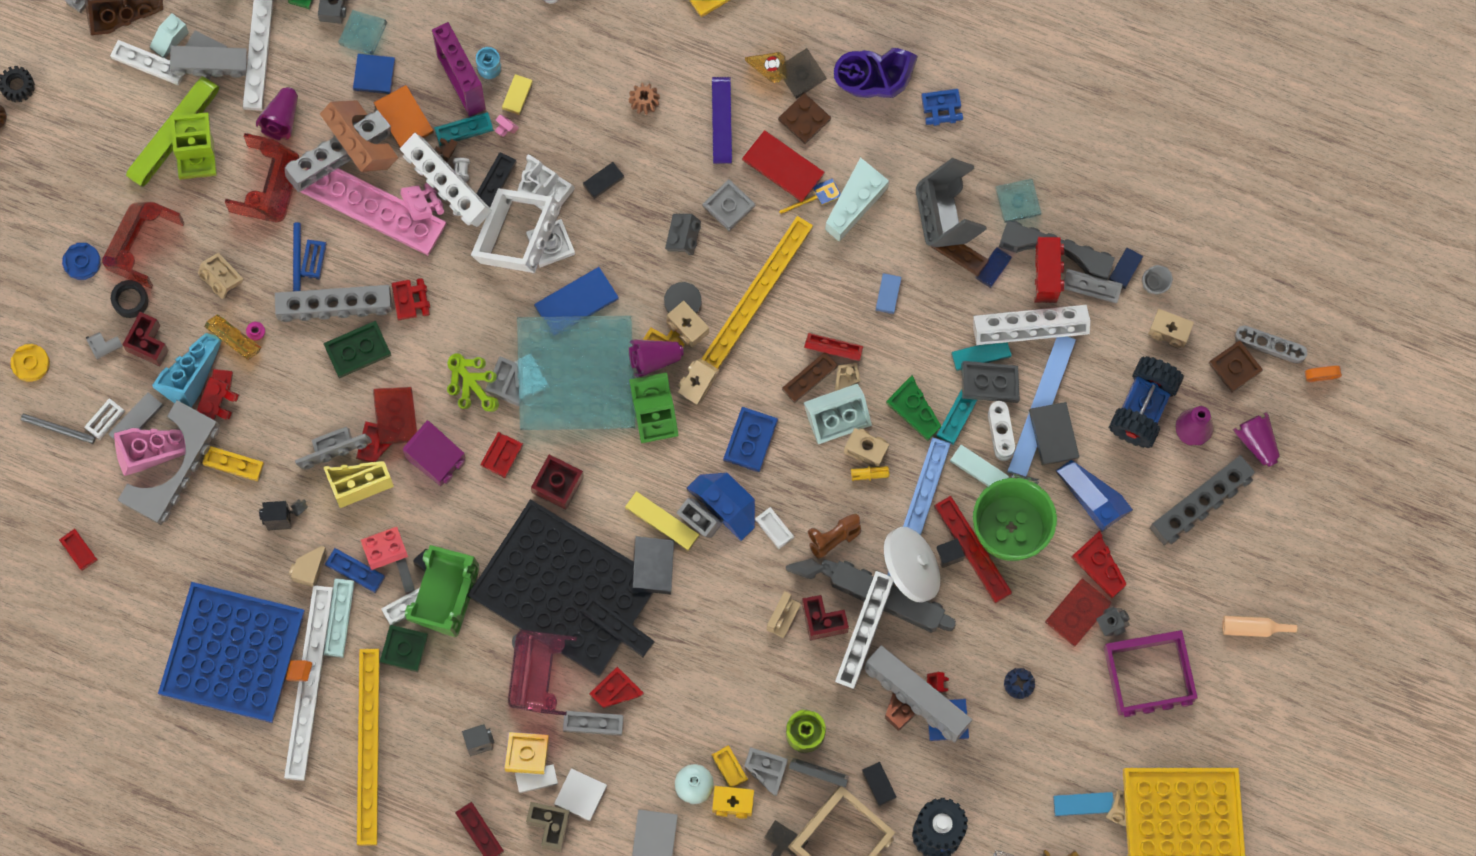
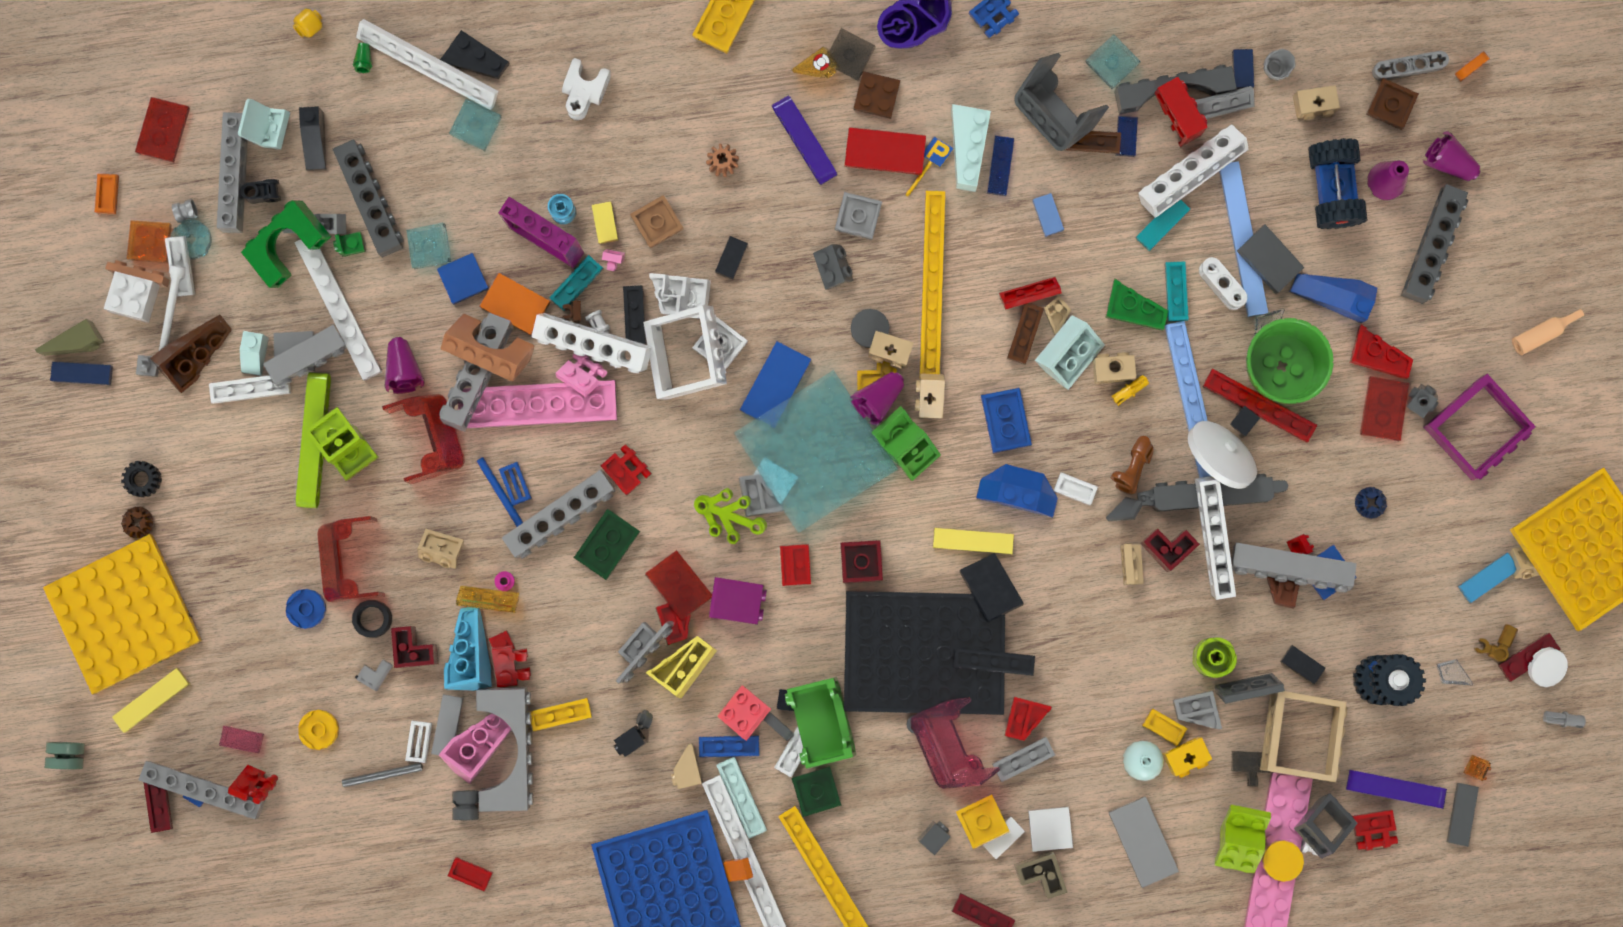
camera: 25 degrees left, 10 degrees up
(109, 490) = (465, 805): none -> dark grey wheel
(559, 116) = (656, 221): none -> medium nougat plate
(699, 517) = (1006, 520): light grey brick -> none
(872, 232) = (1000, 166): none -> clear blue tile
(977, 466) = (1222, 329): light aqua tile -> none
(990, 382) = (1187, 244): dark grey tile -> none

